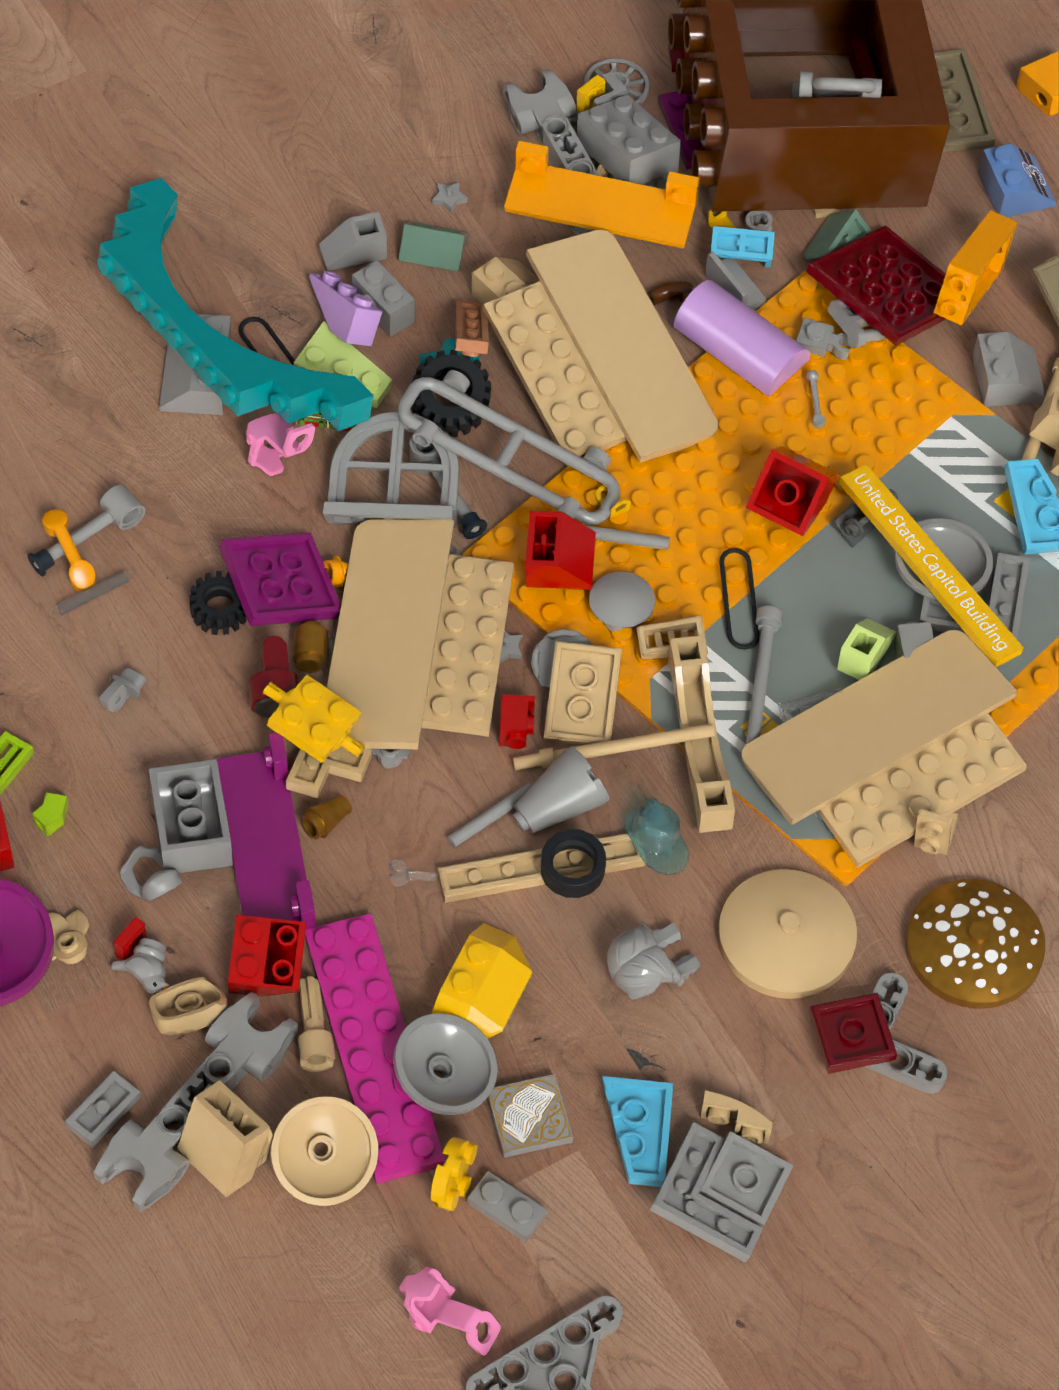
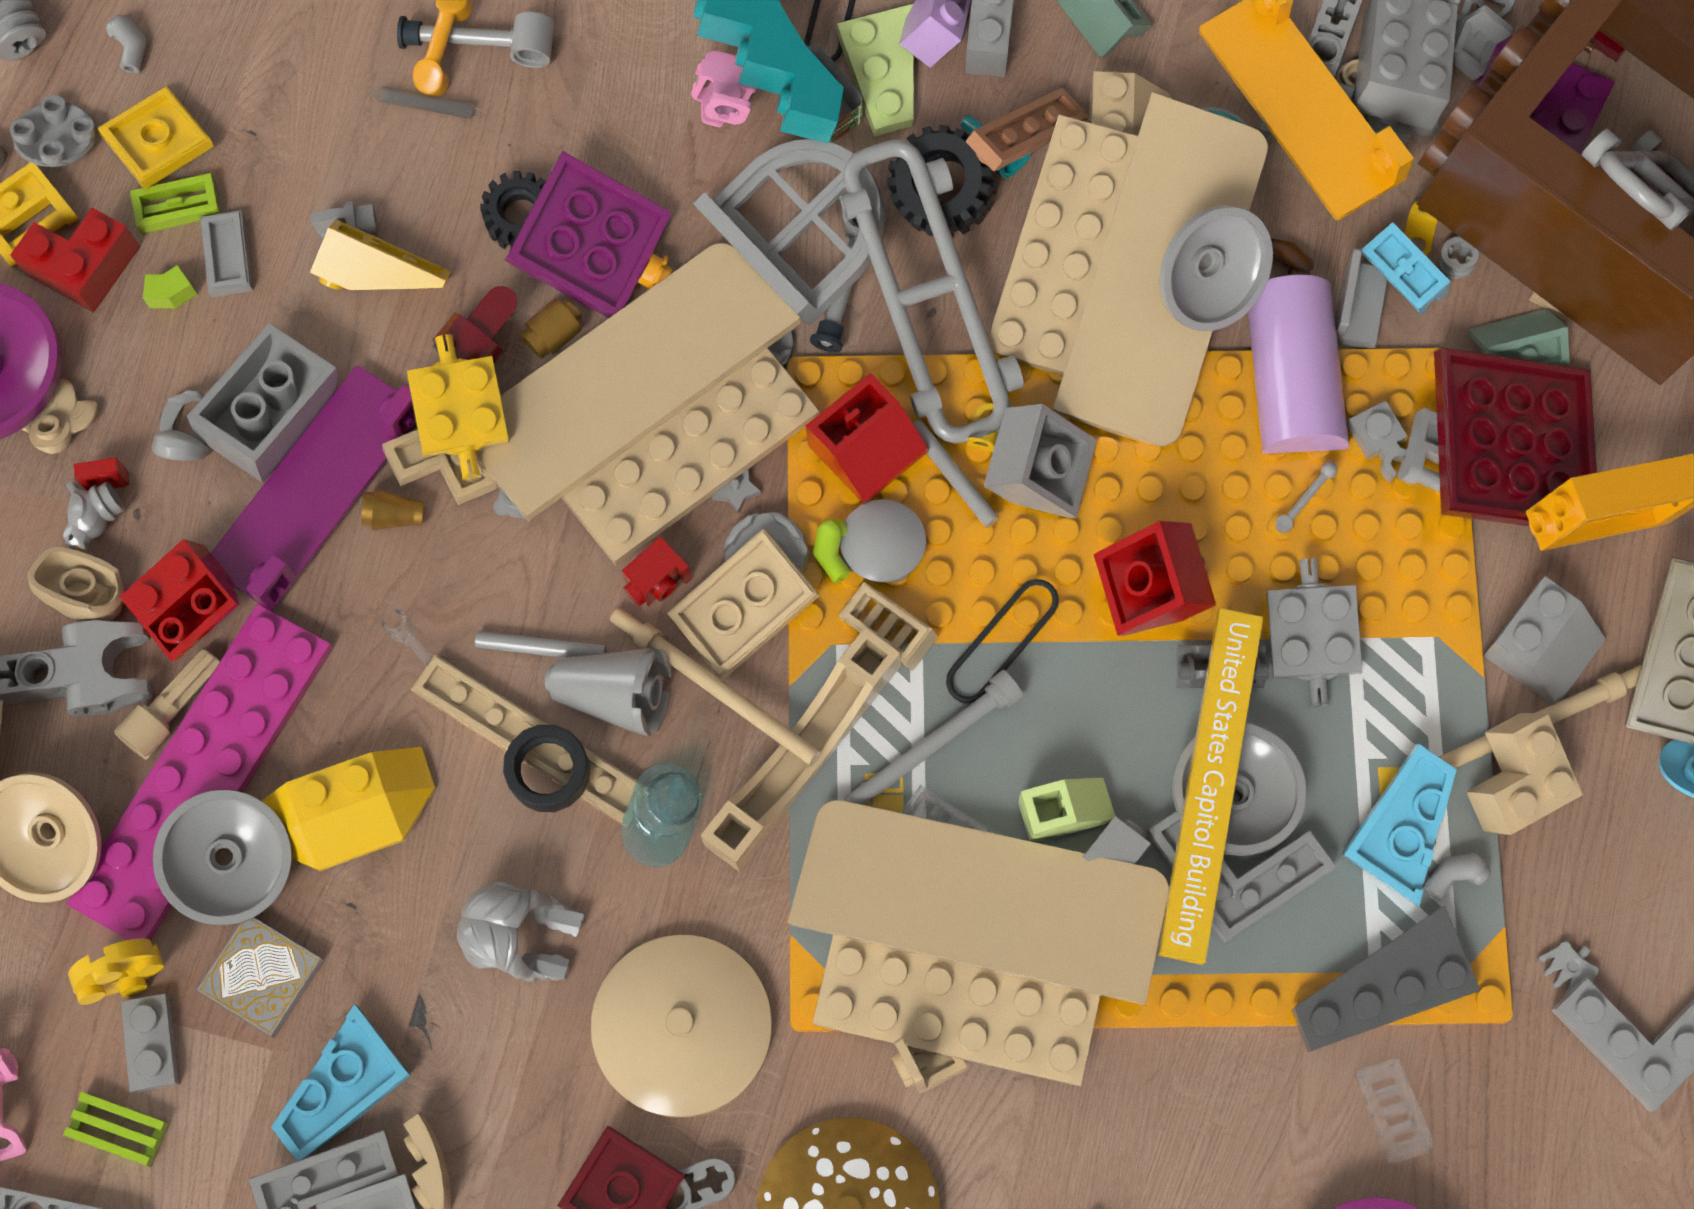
camera: 50 degrees right, 15 degrees up
(63, 768) = (226, 253): none -> light grey tile
(164, 698) = (364, 262): none -> yellow slope
(545, 1279) = (80, 1116): none -> lime tile
(596, 627) = (827, 547): none -> lime arm
(651, 99) = (1477, 39): none -> light grey bracket
(656, 311) = (1230, 274): none -> light grey dish
(660, 489) = (1040, 460): none -> light grey slope
(894, 457) = (1314, 632): none -> light grey plate

